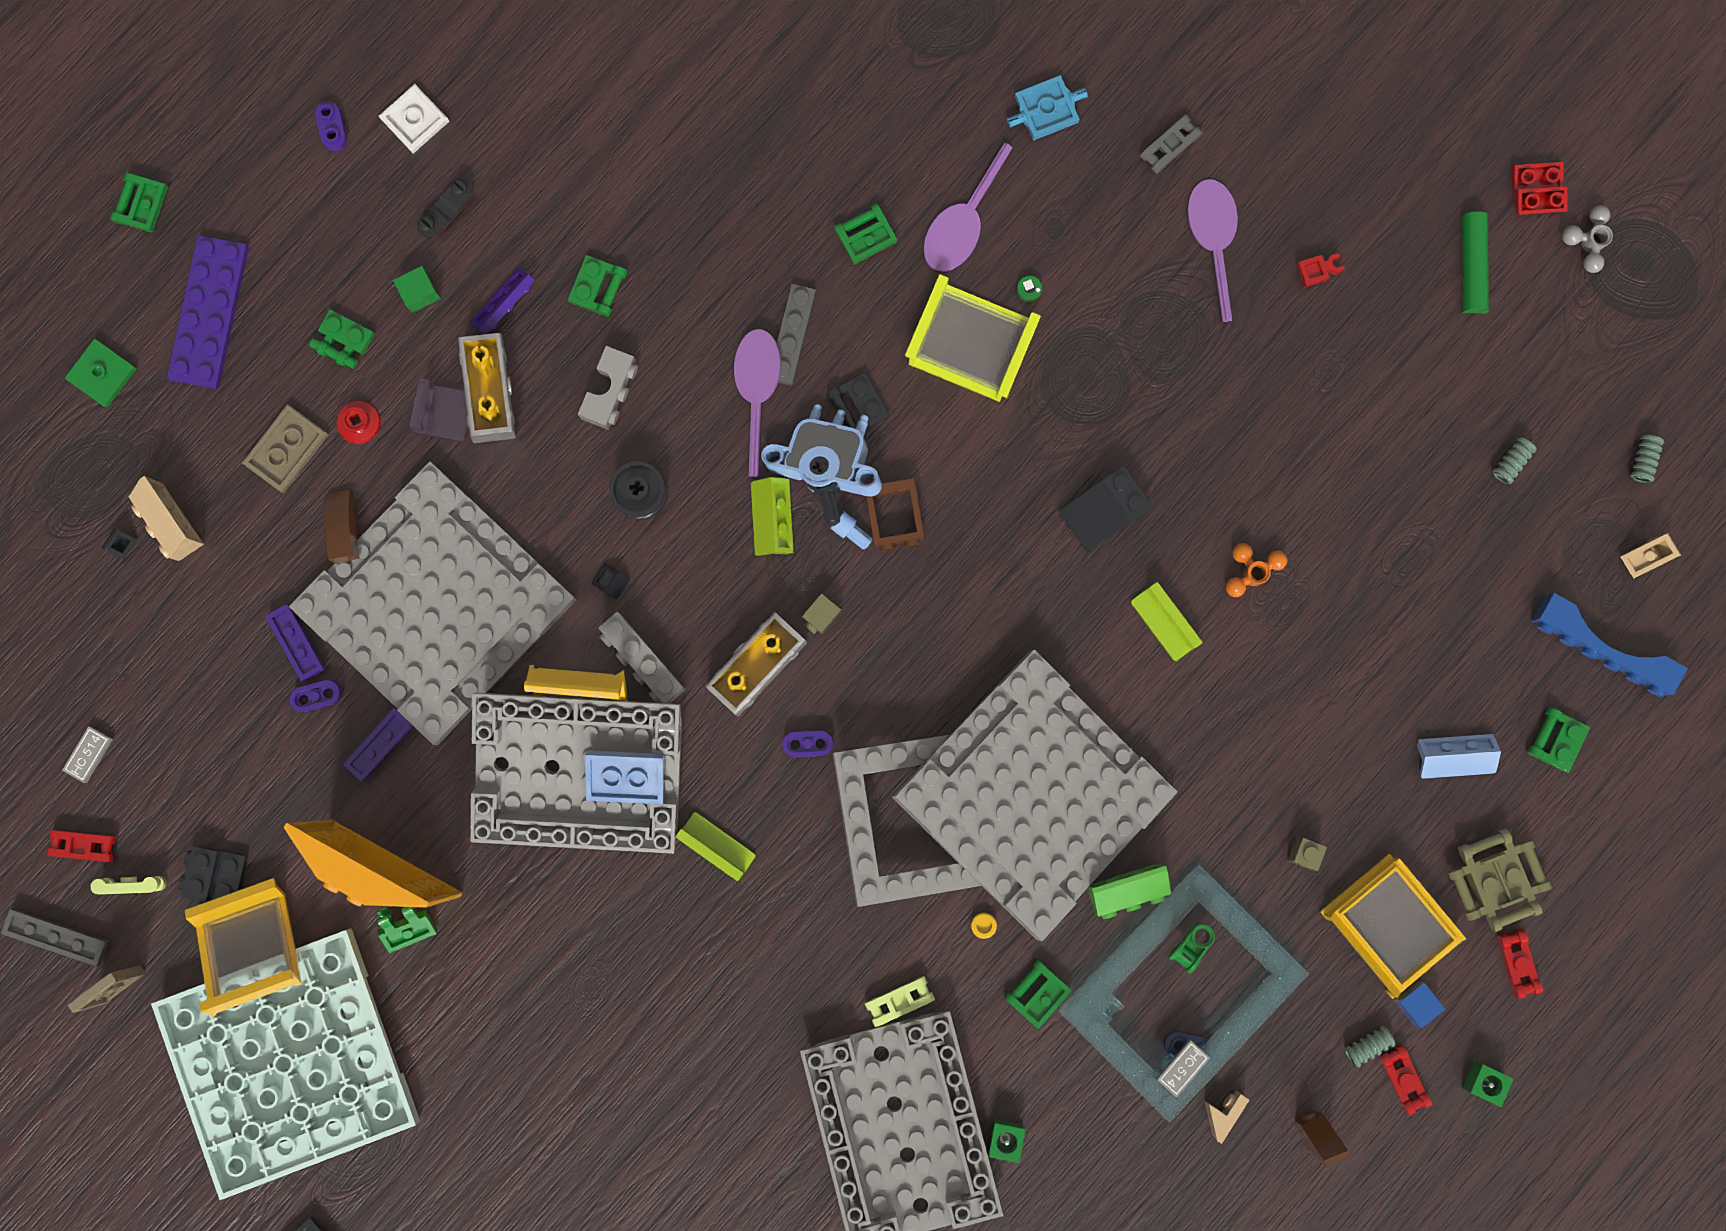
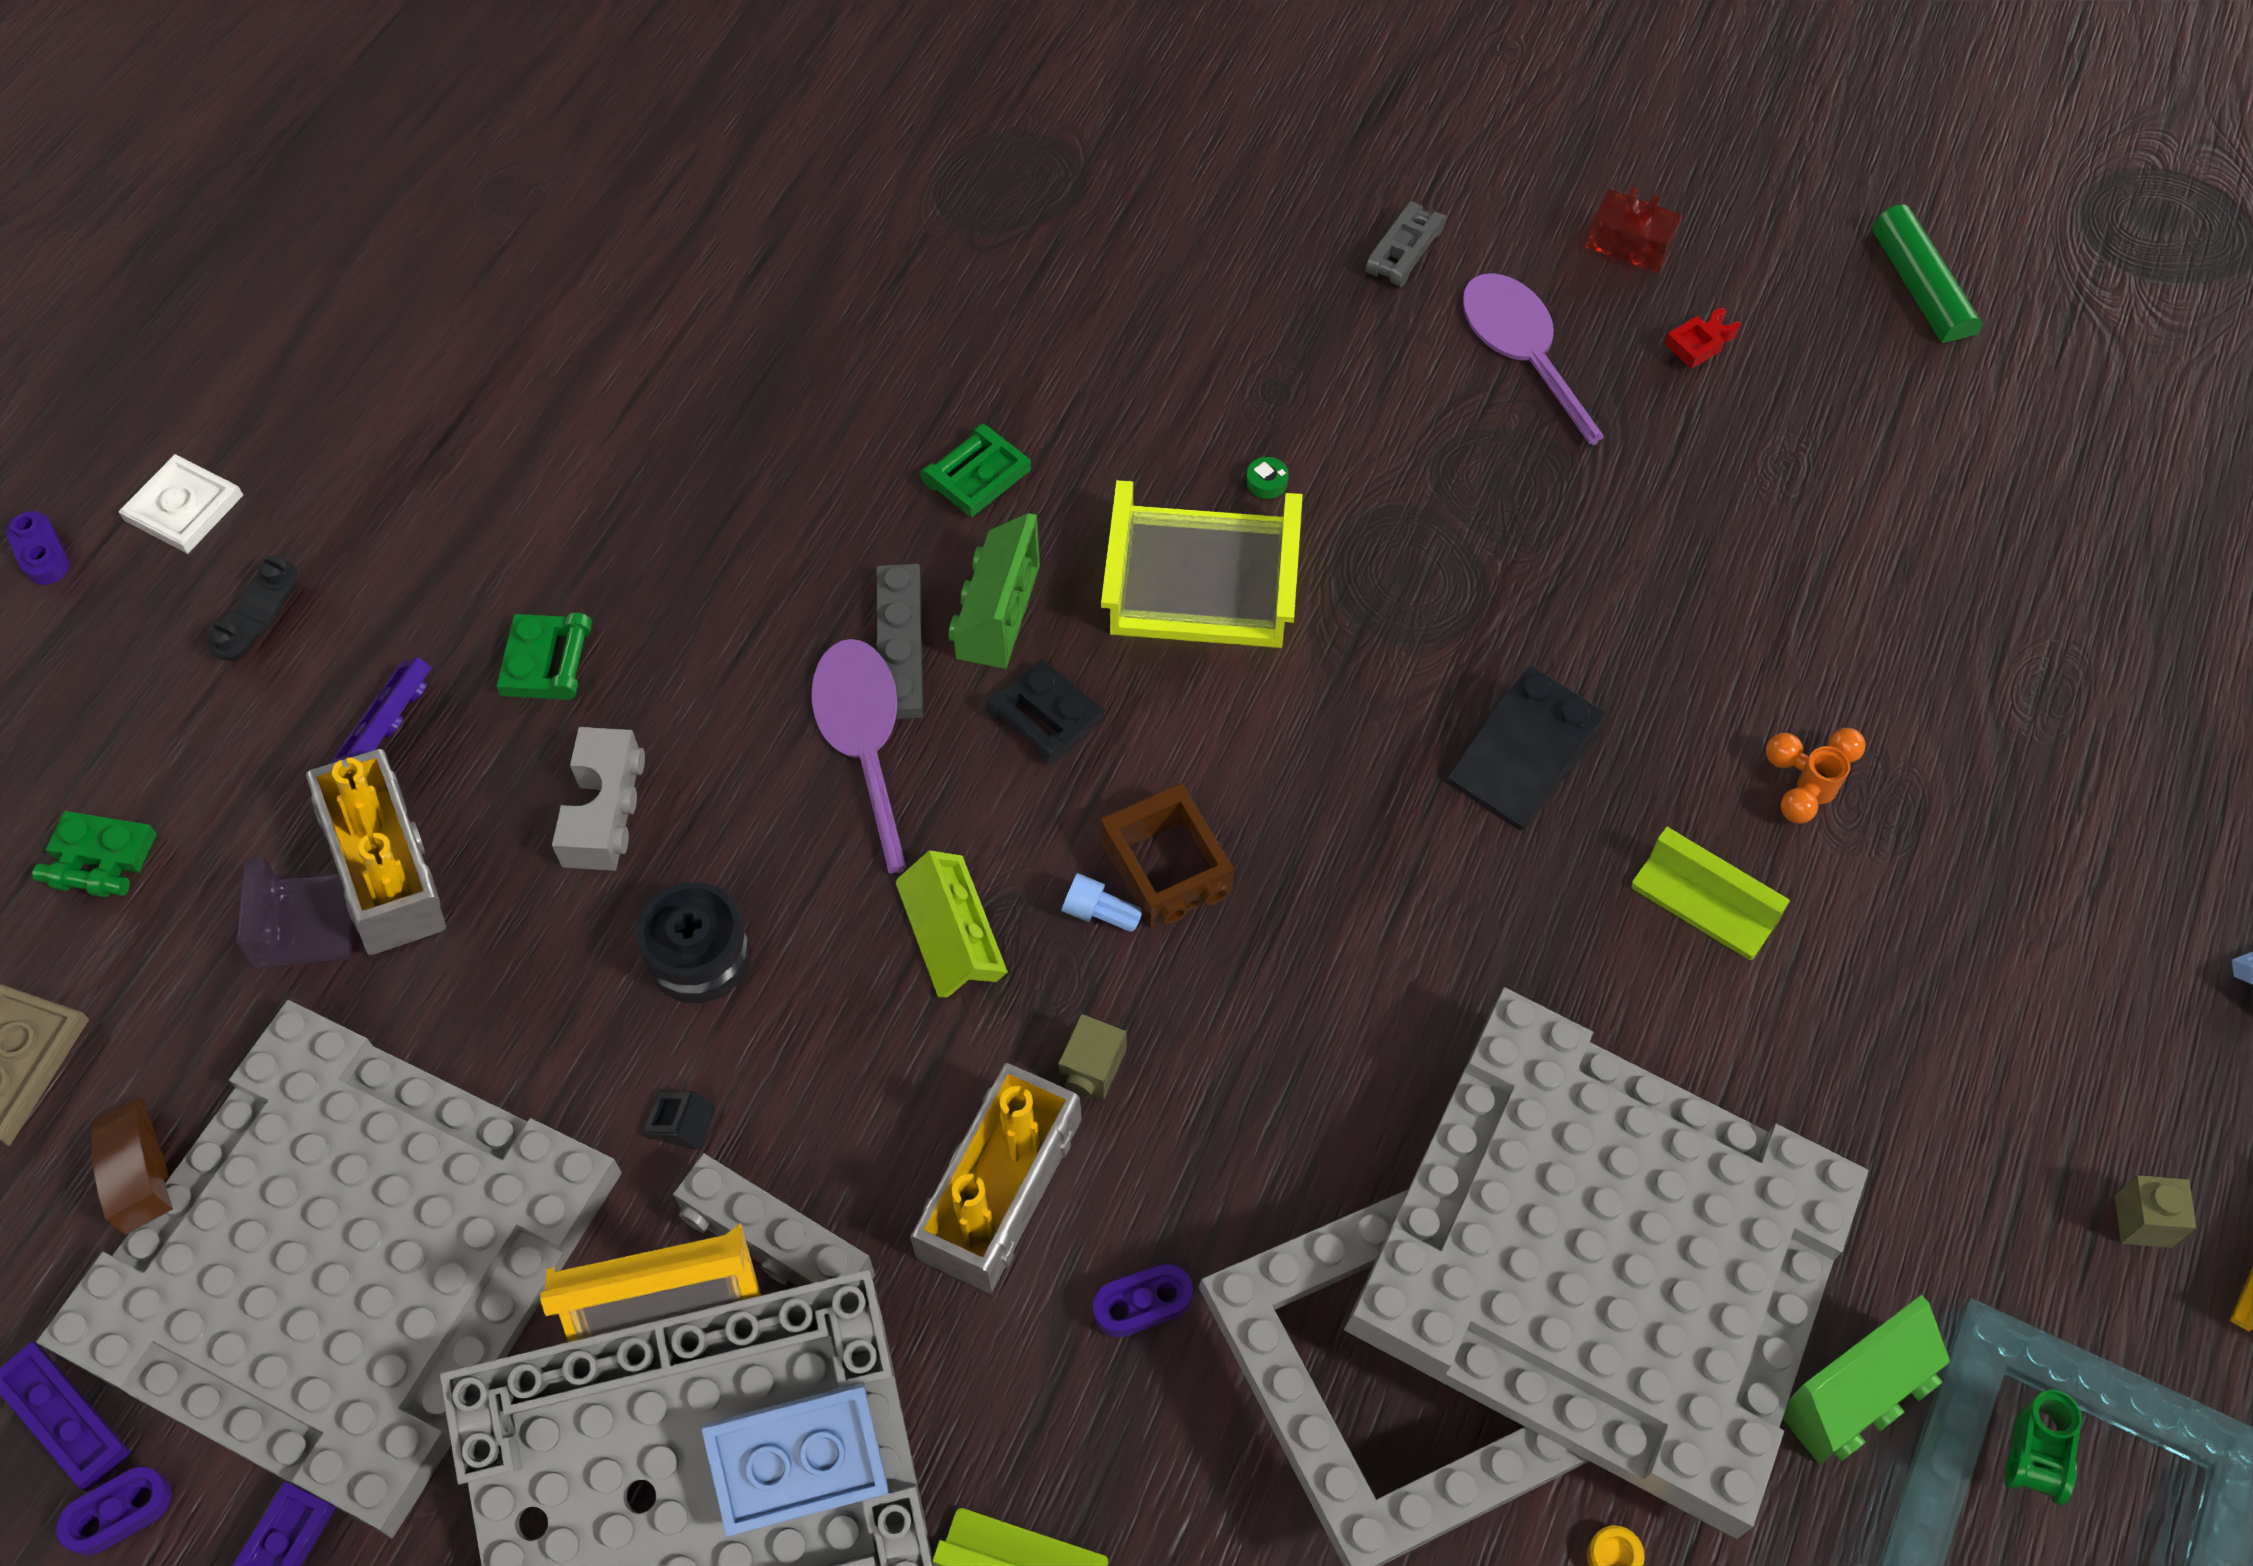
camera: 15 degrees left, 25 degrees down
(362, 431) = (151, 994): red piece -> none
(417, 289) = (222, 737): green piece -> none
(827, 446) = (1018, 799): piece -> none
(851, 325) = (997, 593): none -> bright green slope
(958, 227) = (1122, 431): medium lavender piece -> none
(1047, 107) = (1200, 244): dark azure plate -> none
(1311, 179) = (1634, 230): none -> clear red brick
(1514, 460) = (2137, 504): sand green piece -> none
(1539, 188) = (1963, 166): red slope -> none
(1573, 235) = (2078, 205): light grey piece -> none

